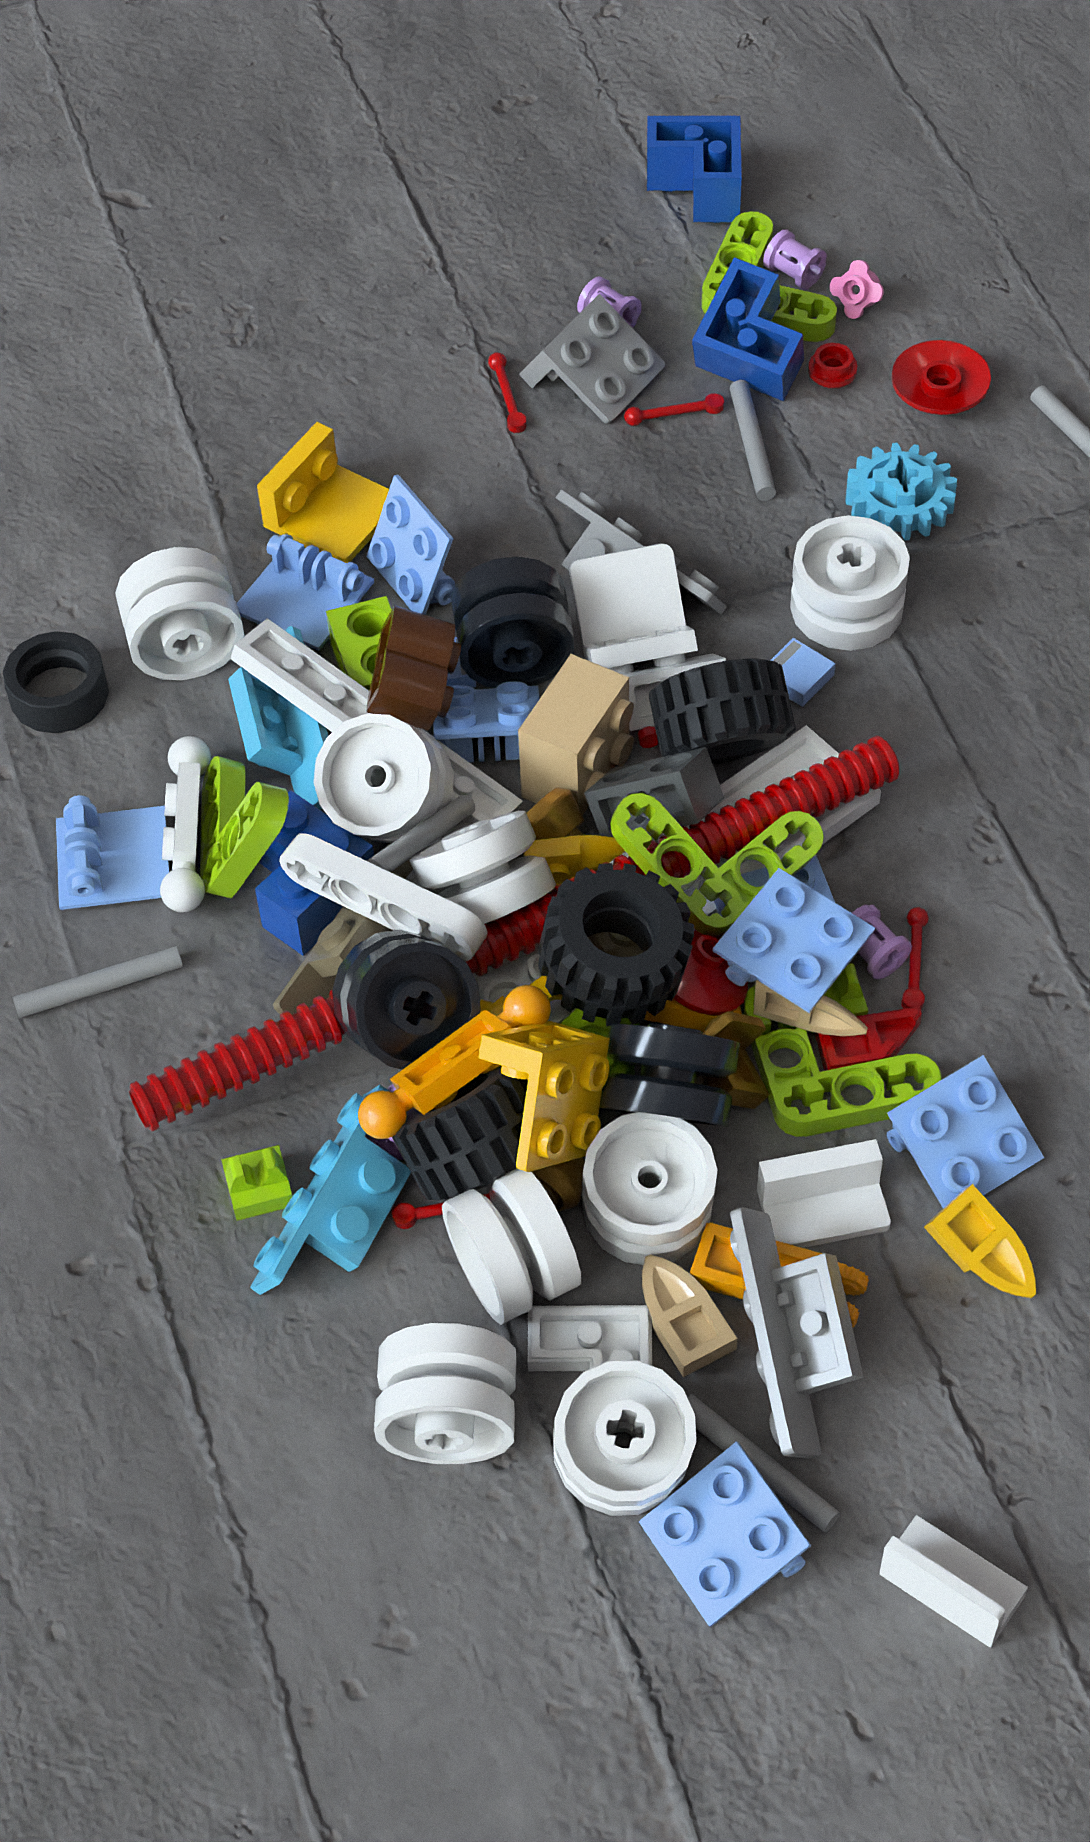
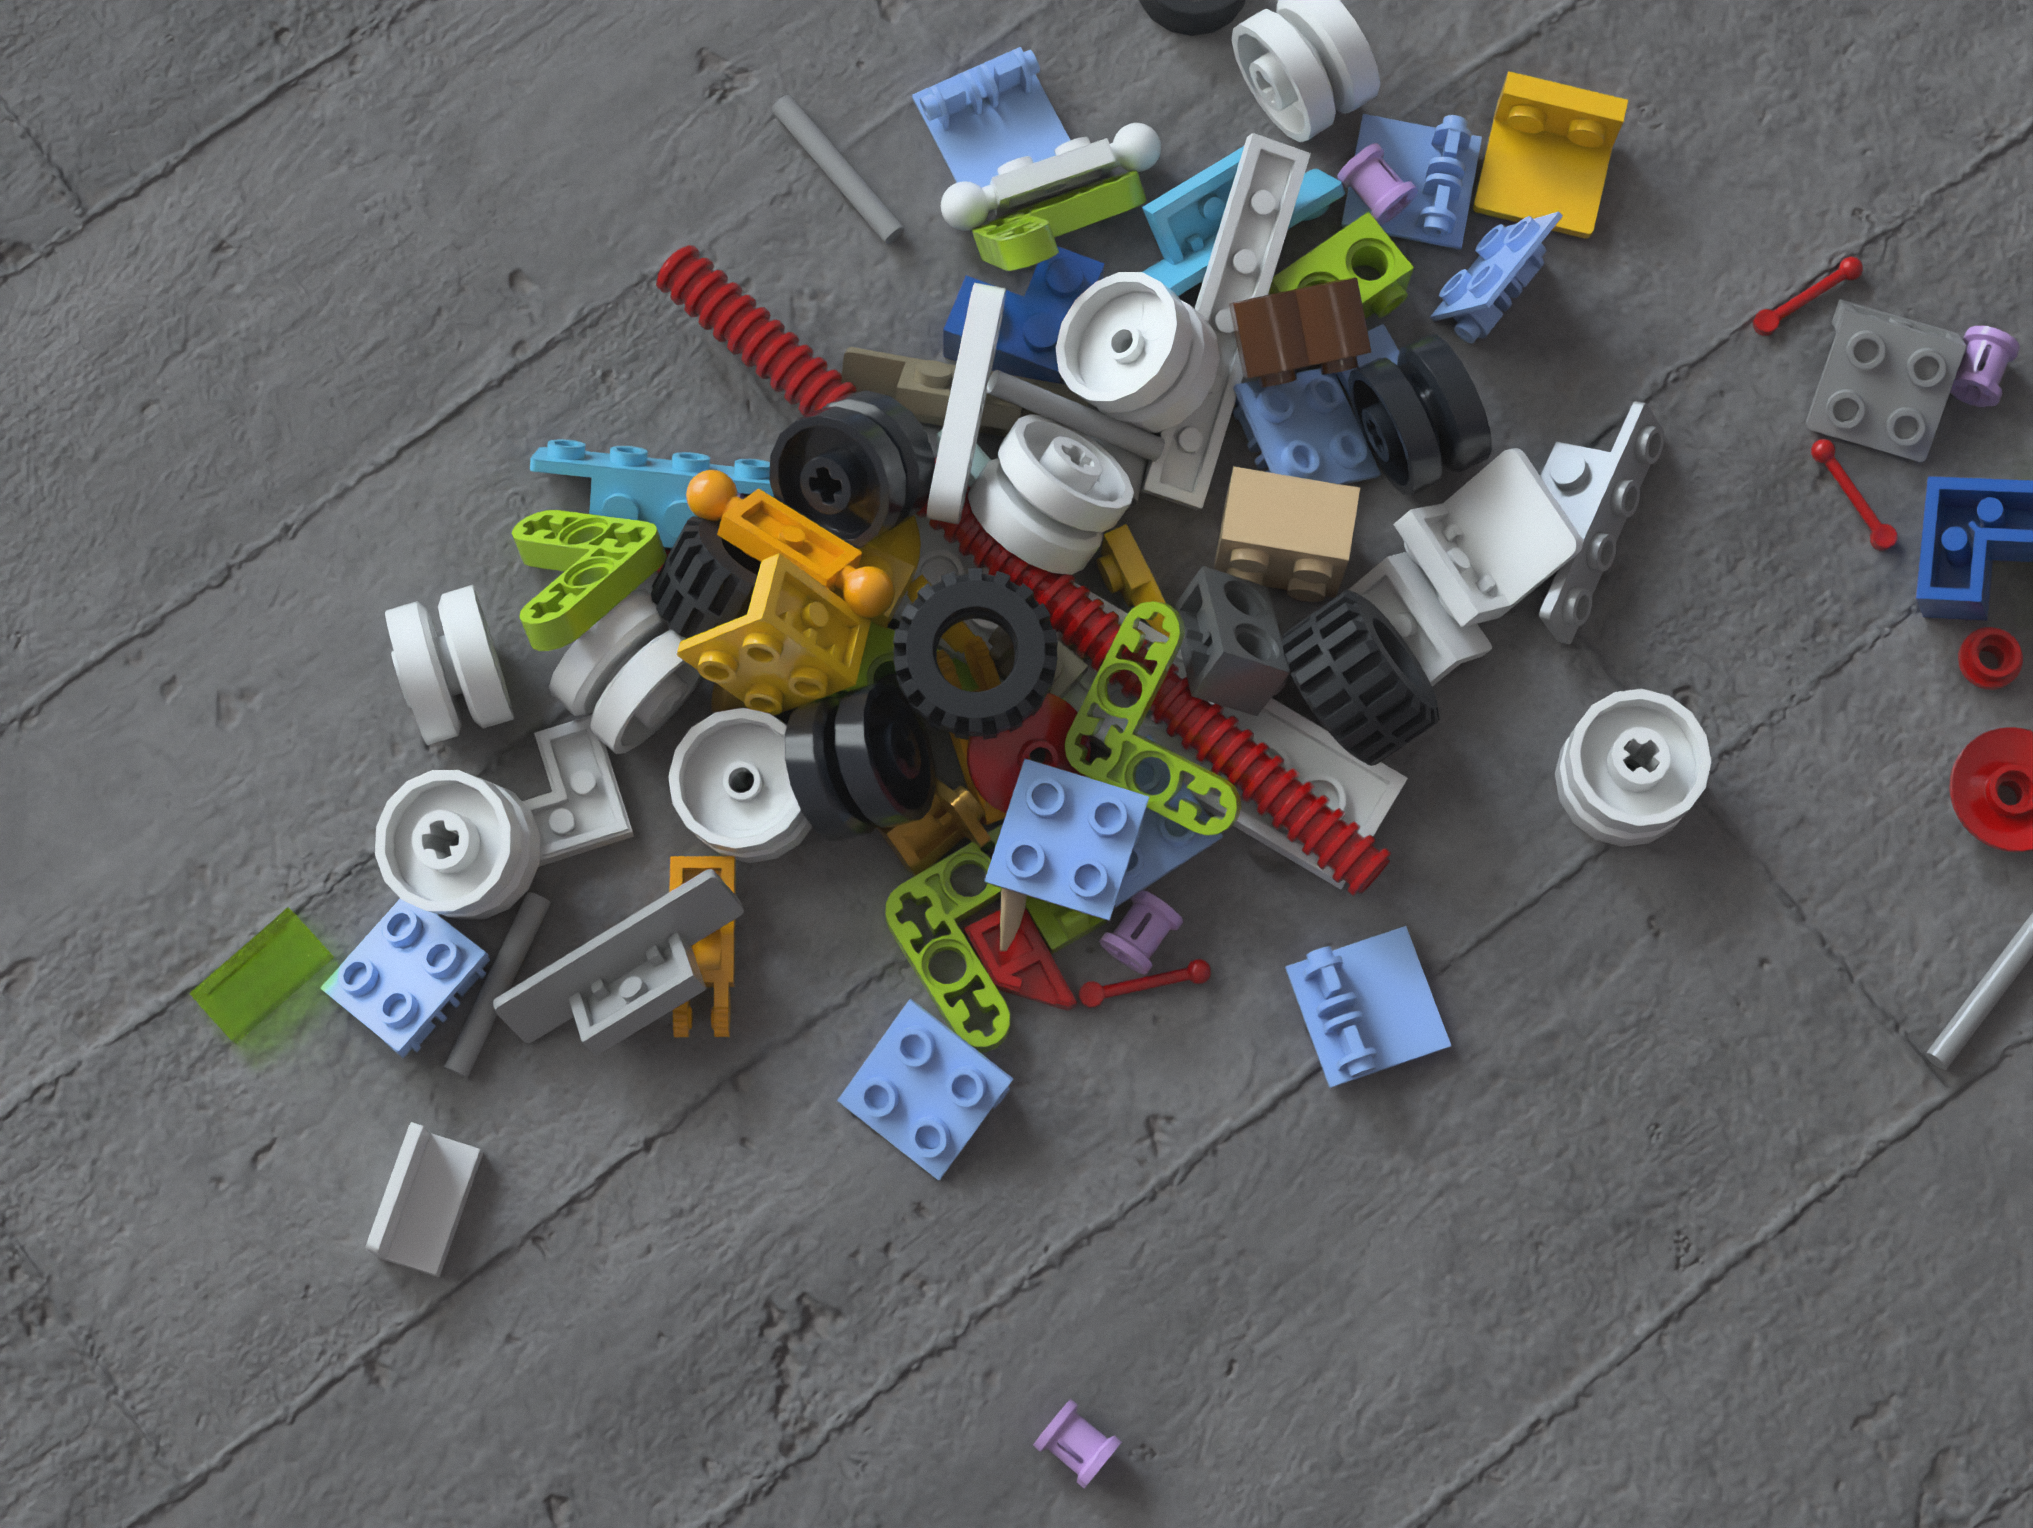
camera: 65 degrees right, 20 degrees up
(257, 1182) = (656, 410): lime tile -> none
(301, 604) = (1377, 184): none -> lavender bush
(401, 1219) = (601, 564): none -> lime beam
(556, 815) = (1175, 547): pearl gold cone -> none
(681, 1675) = (261, 975): none -> clear neon green tile
(684, 1316) = (626, 865): tan plate -> none
(752, 440) = (1836, 598): light grey bar -> none
(803, 670) = (1496, 749): light blue tile -> none
(824, 1194) = (807, 968): white panel -> none
(902, 490) = (1800, 766): medium azure gear -> none
(984, 812) = (1367, 1006): none -> light blue hinge
(984, 1243) = (803, 1139): yellow plate -> none

